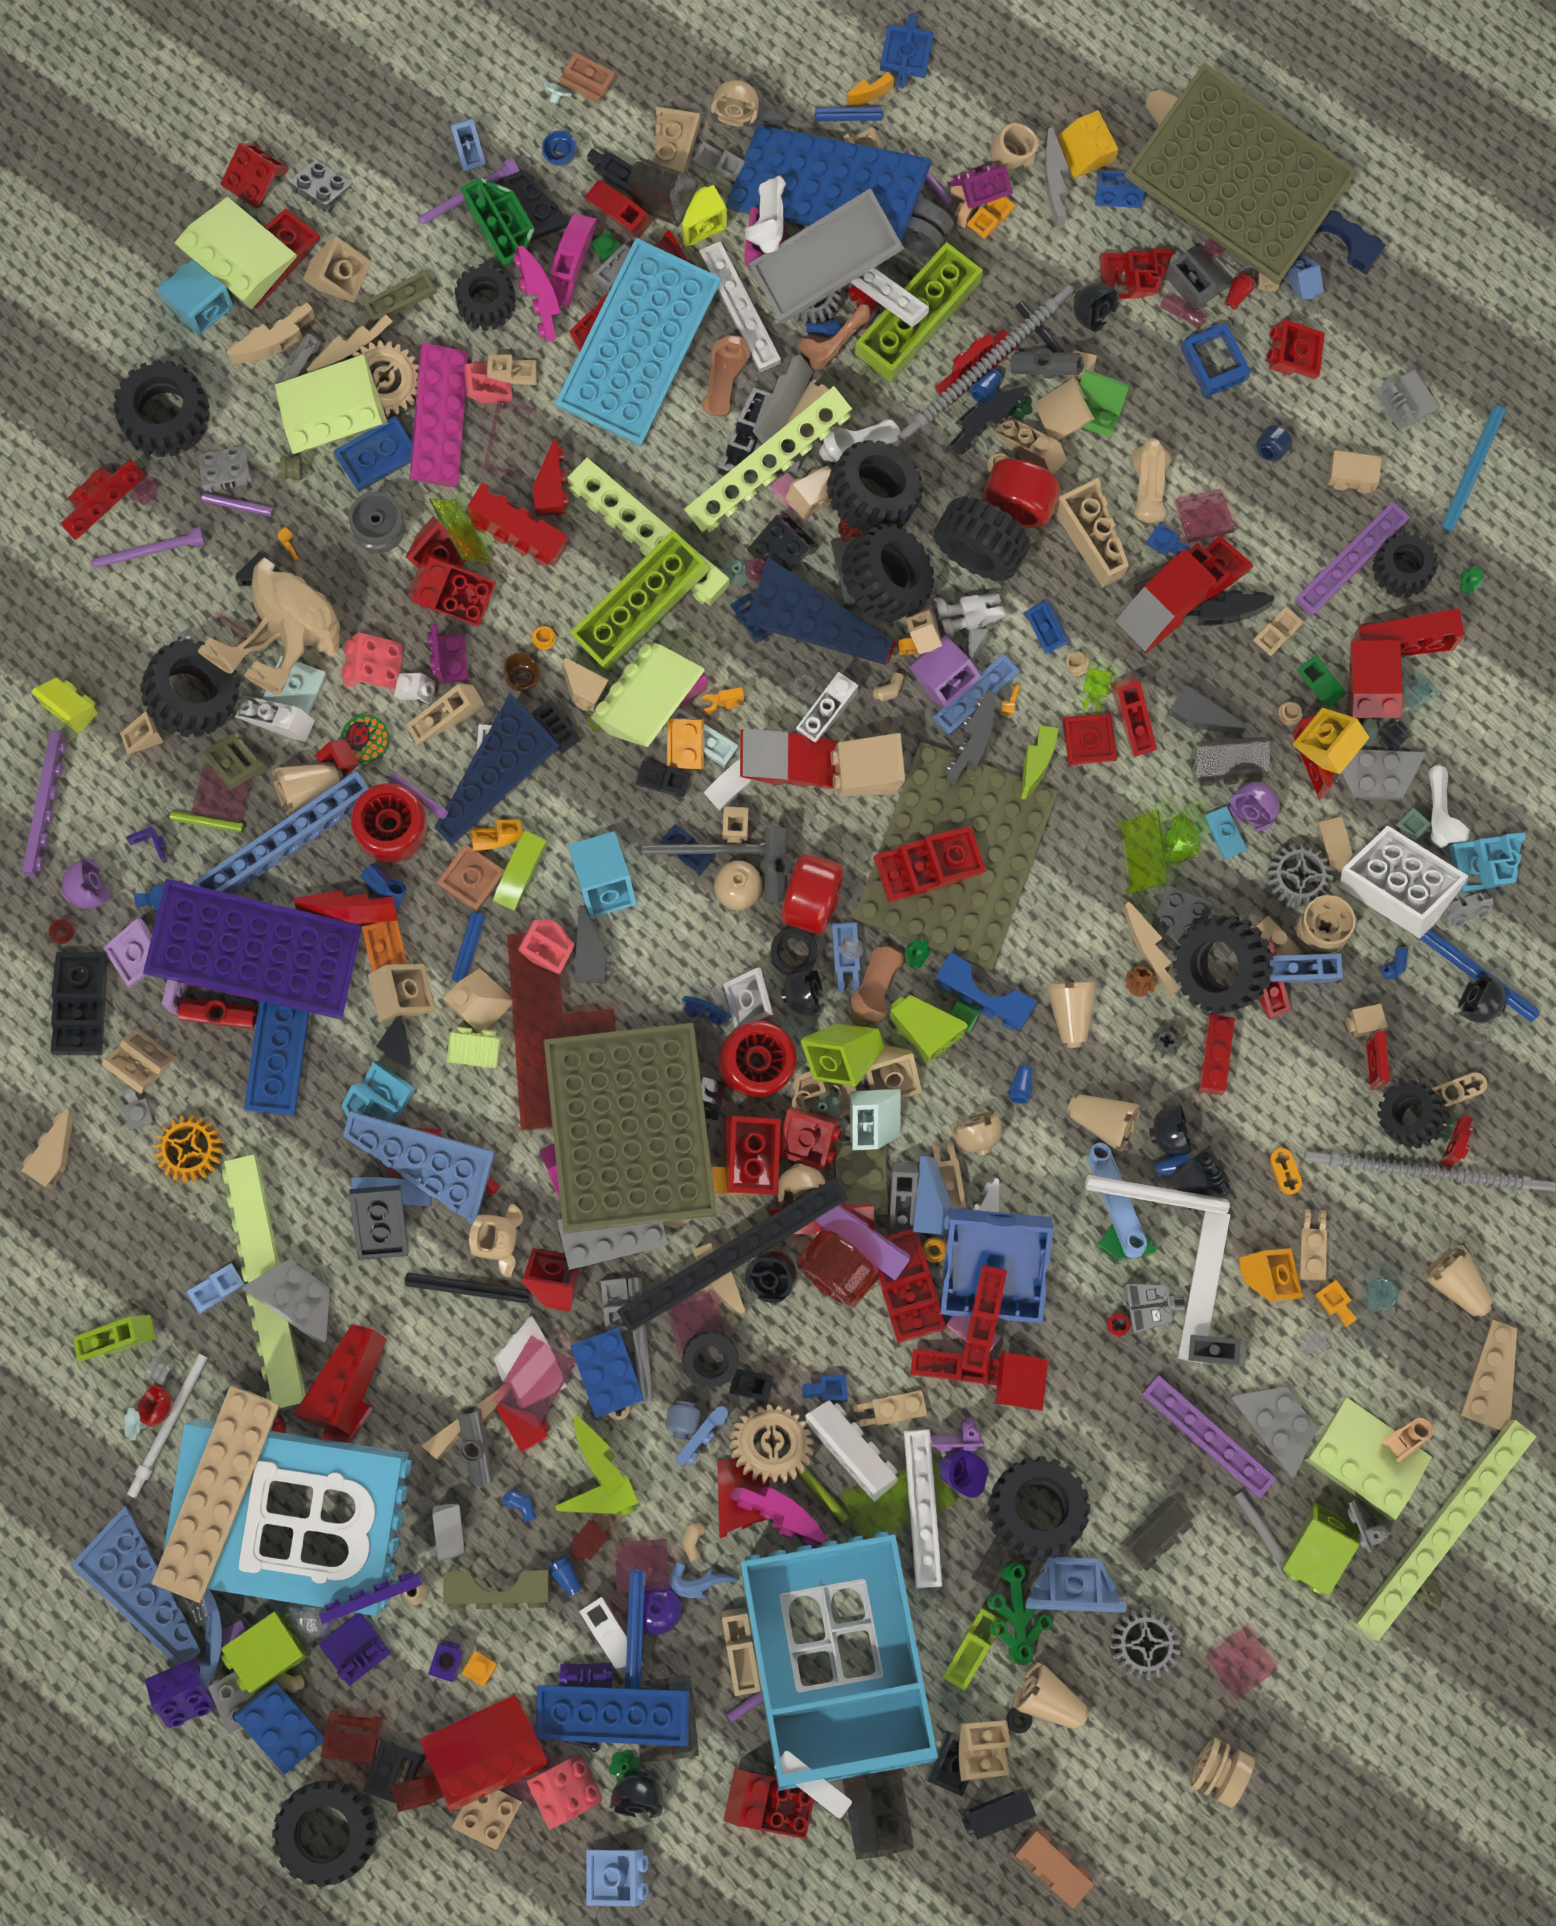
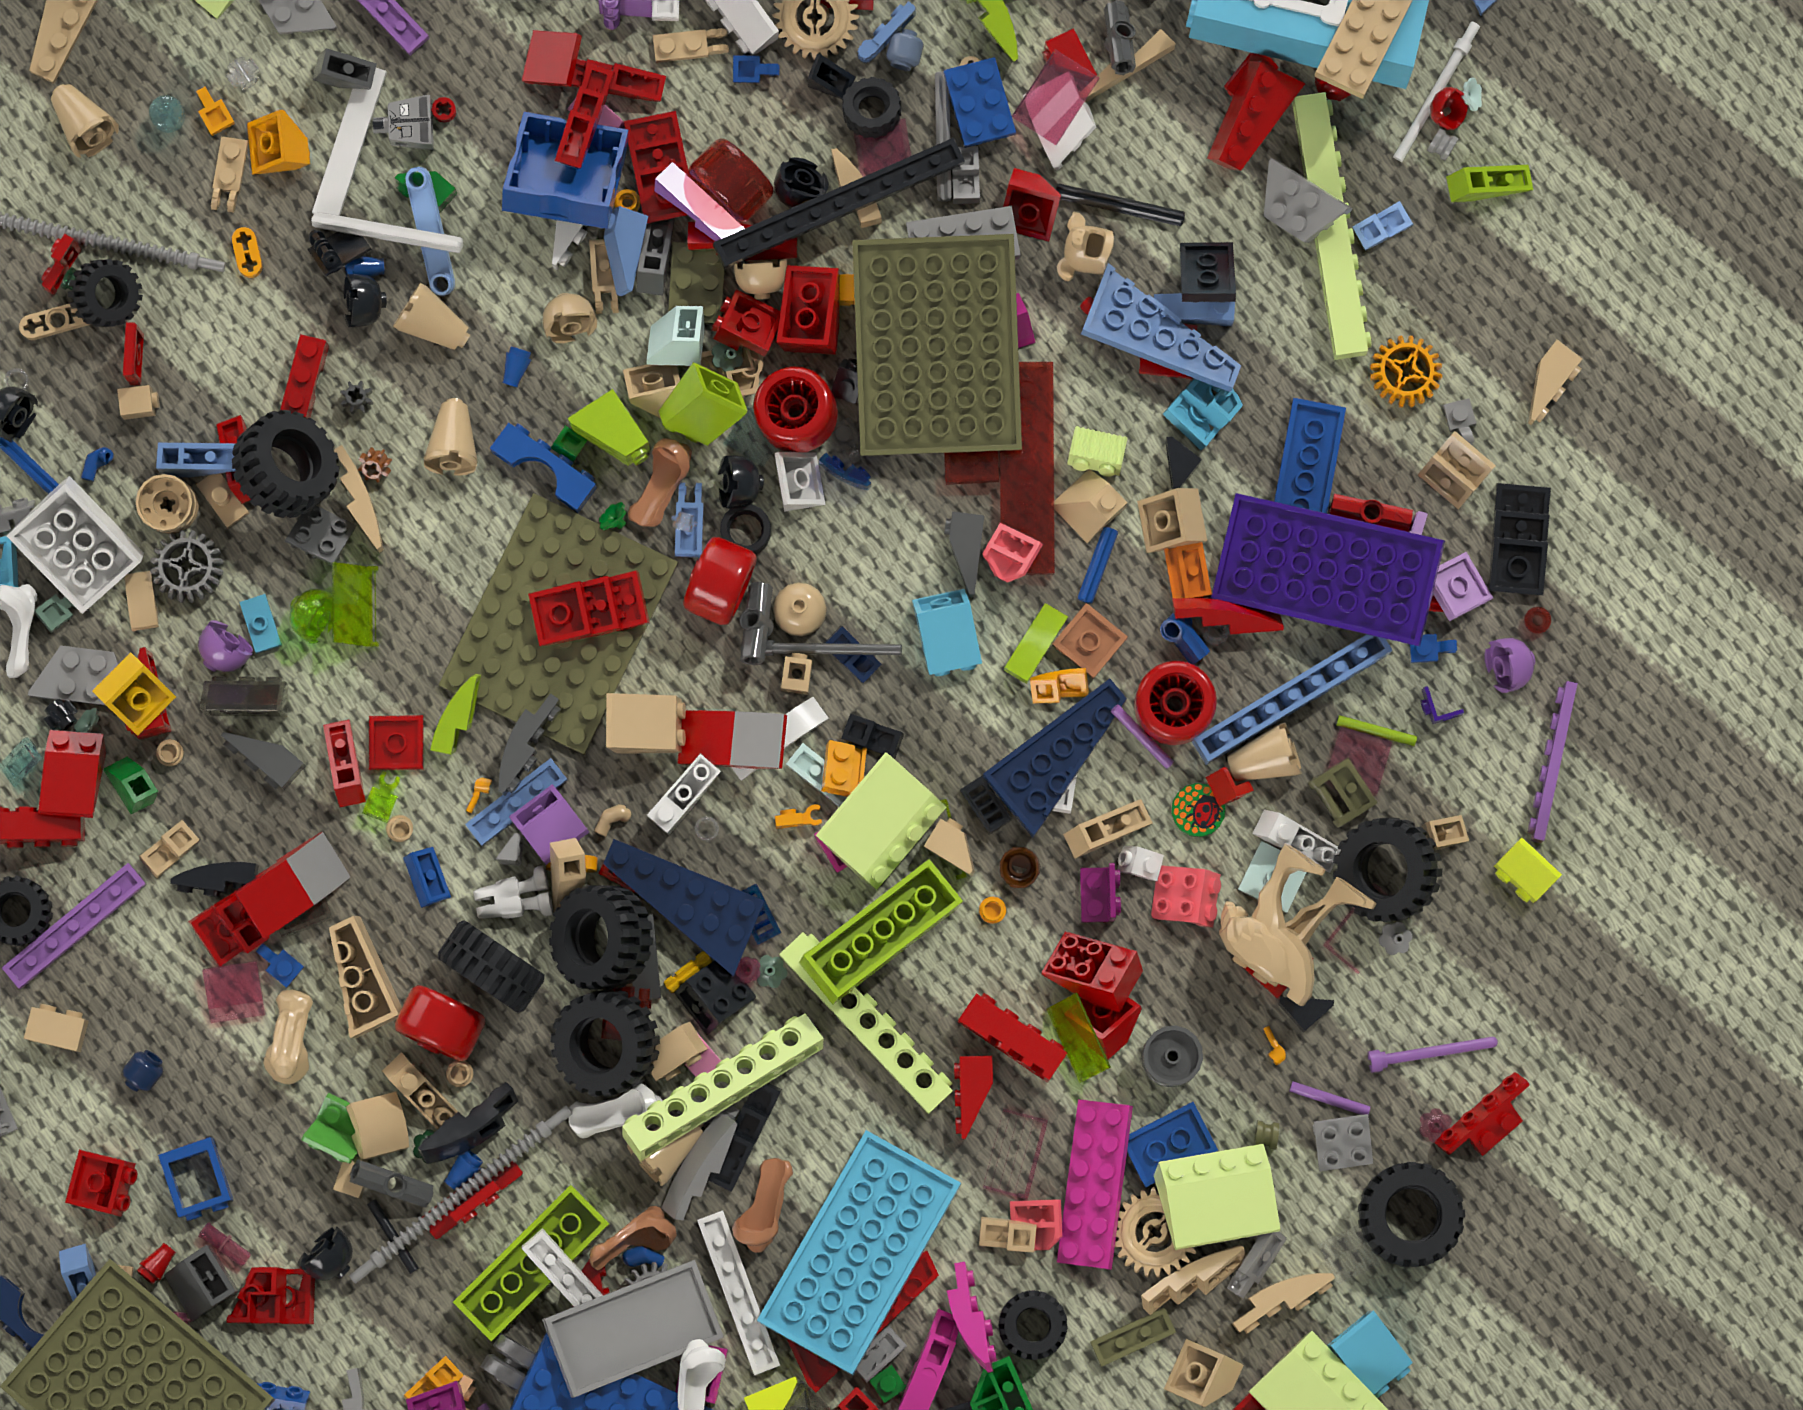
camera: 175 degrees left, 5 degrees up
(811, 562) = (687, 971): none -> yellow axle

